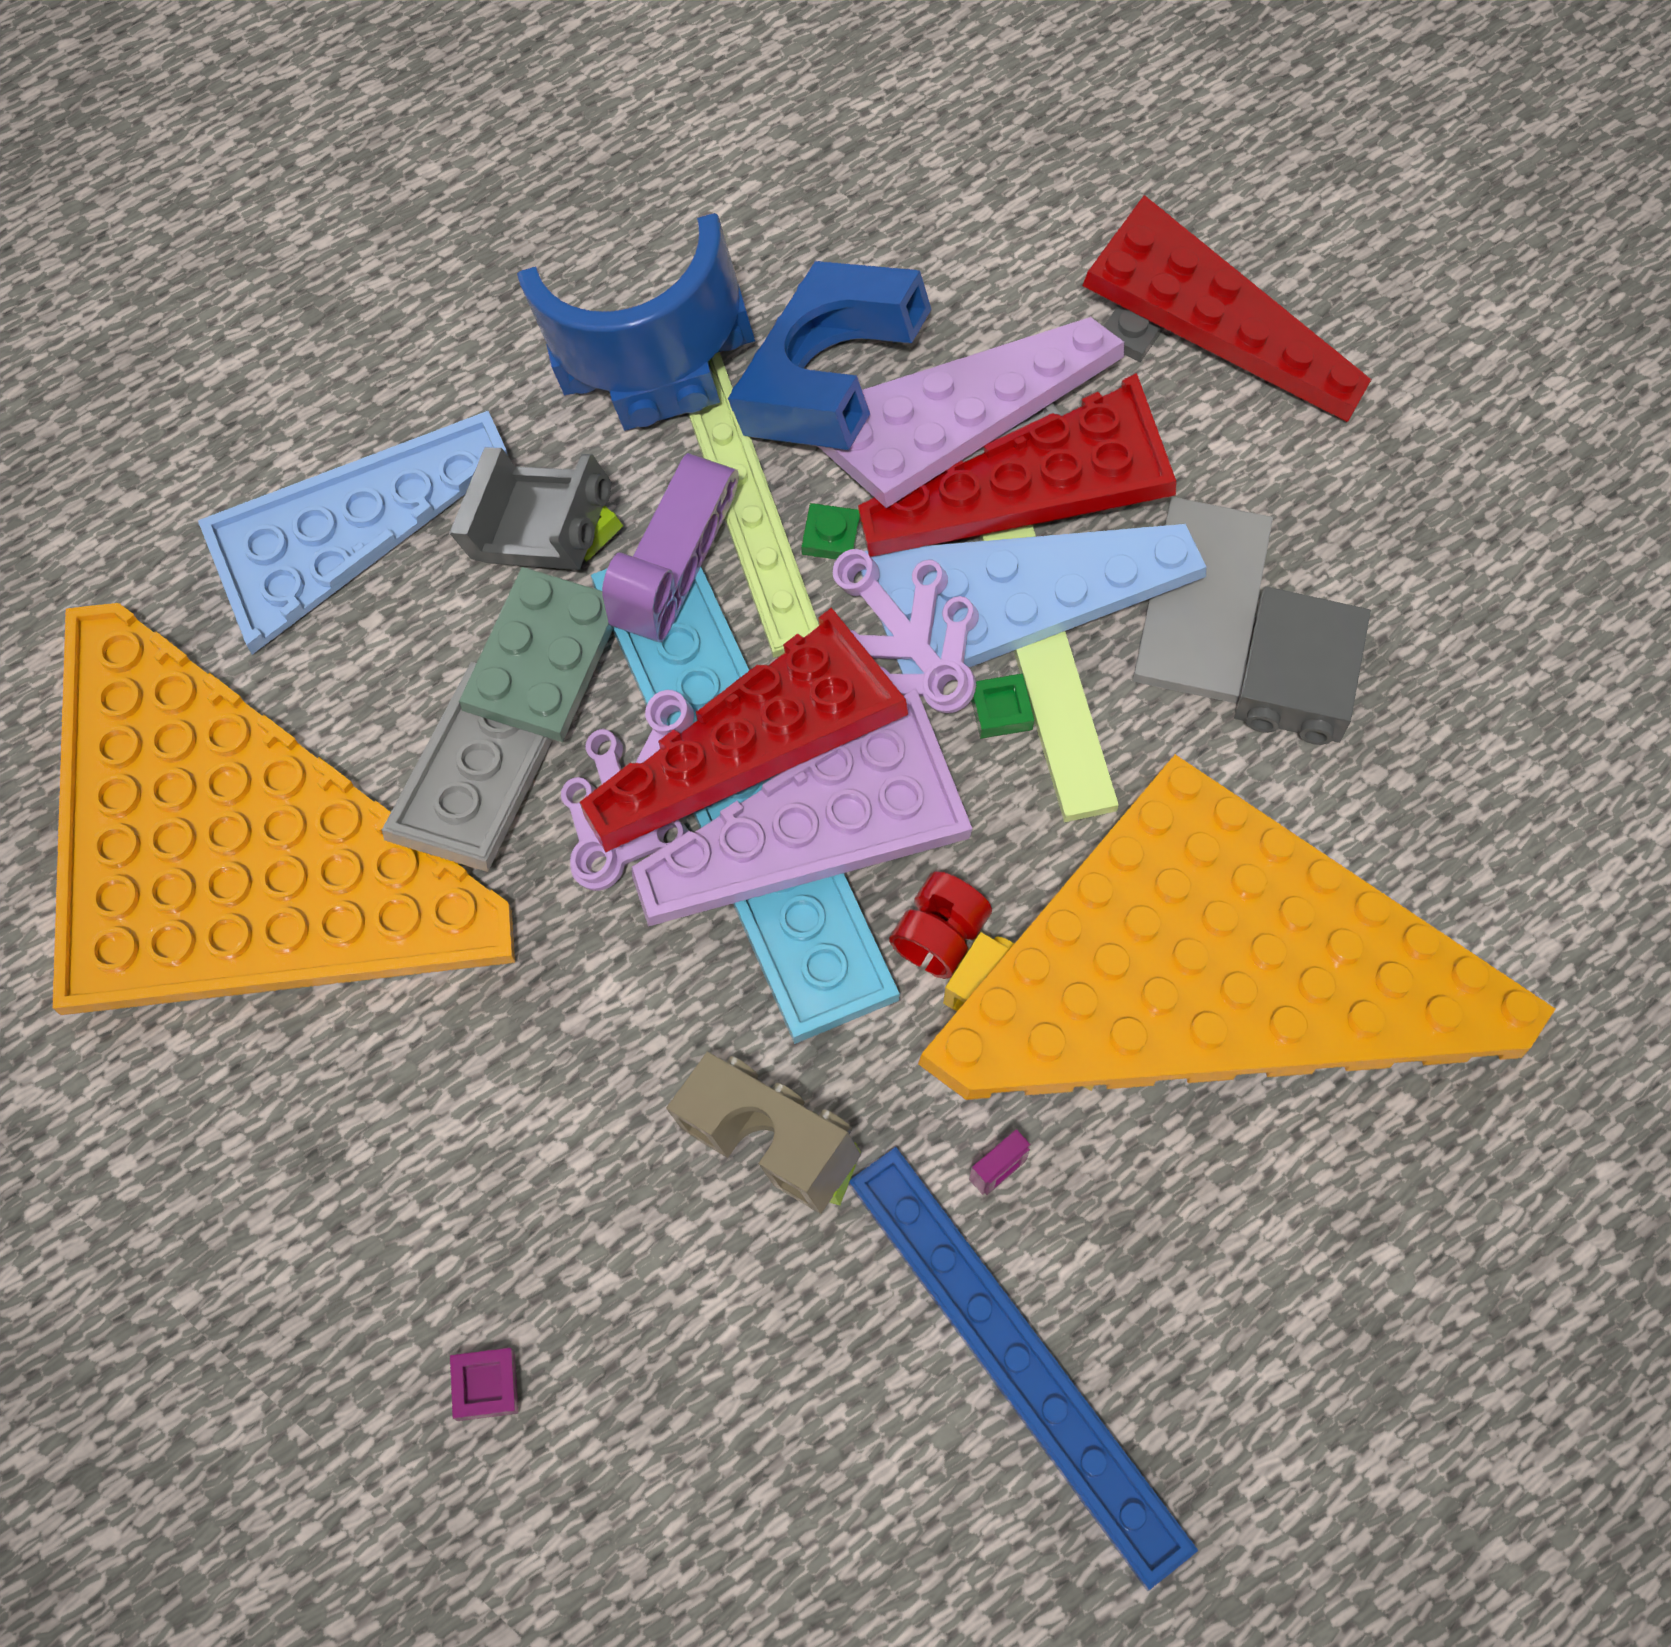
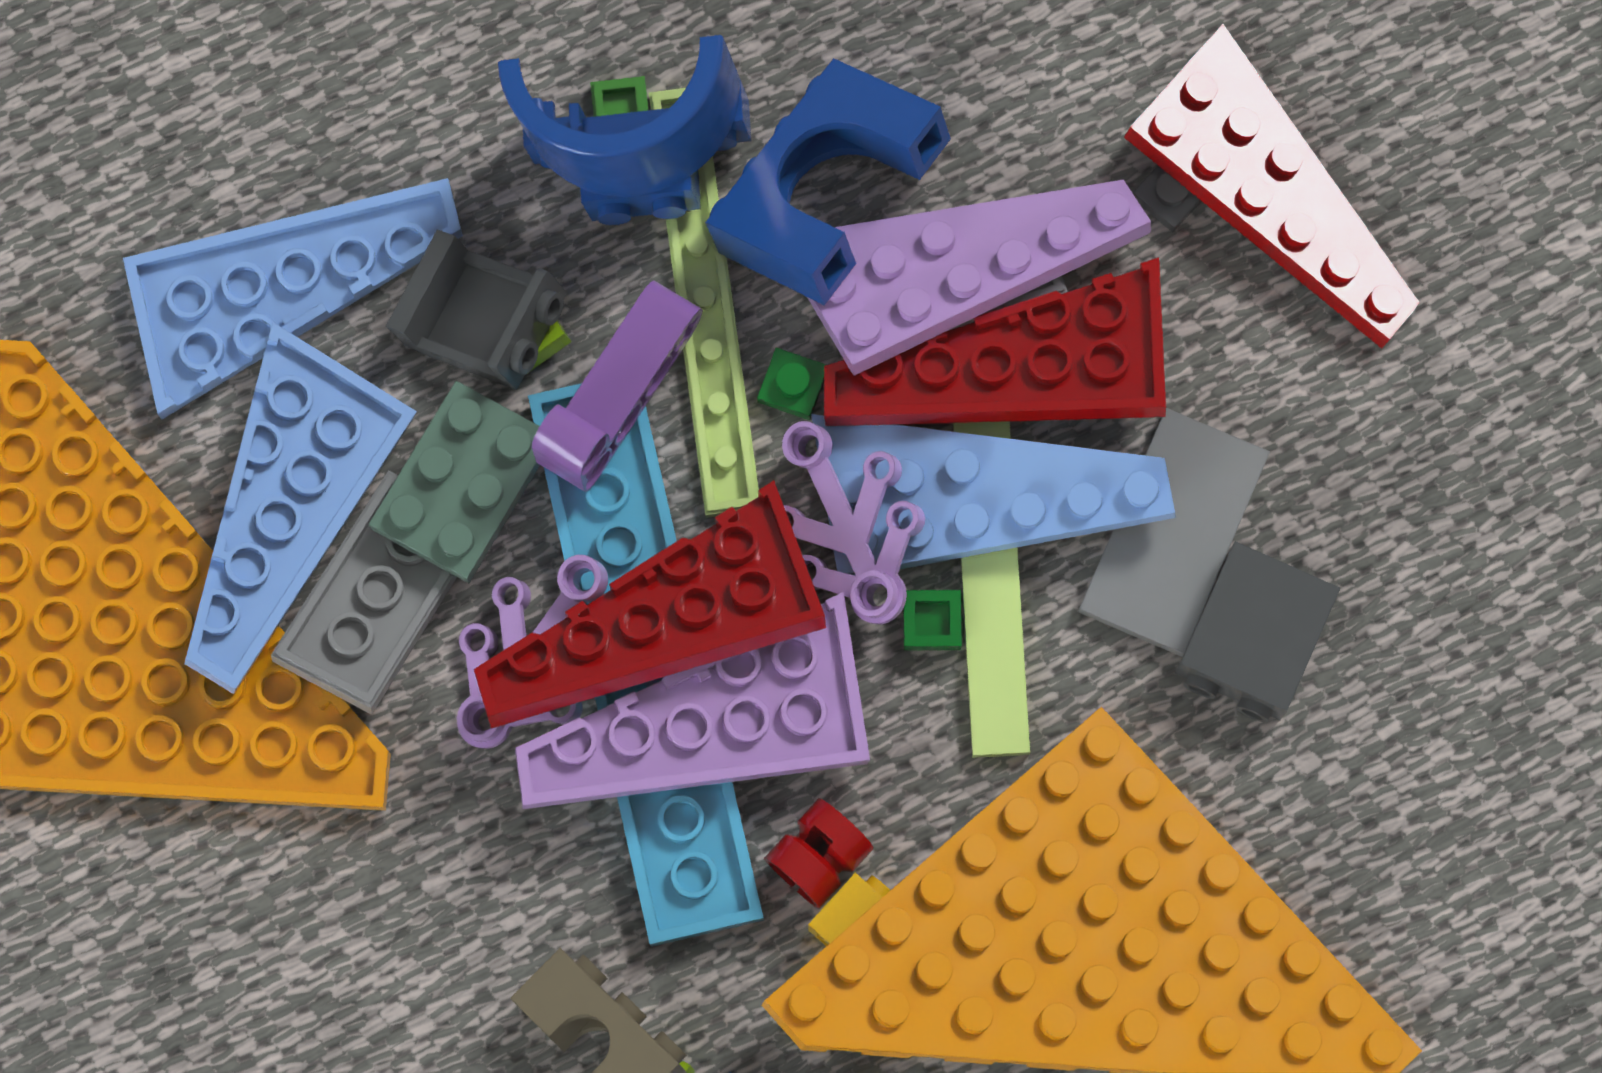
camera: 10 degrees right, 10 degrees up
(383, 680) = (299, 474): none -> light blue wing

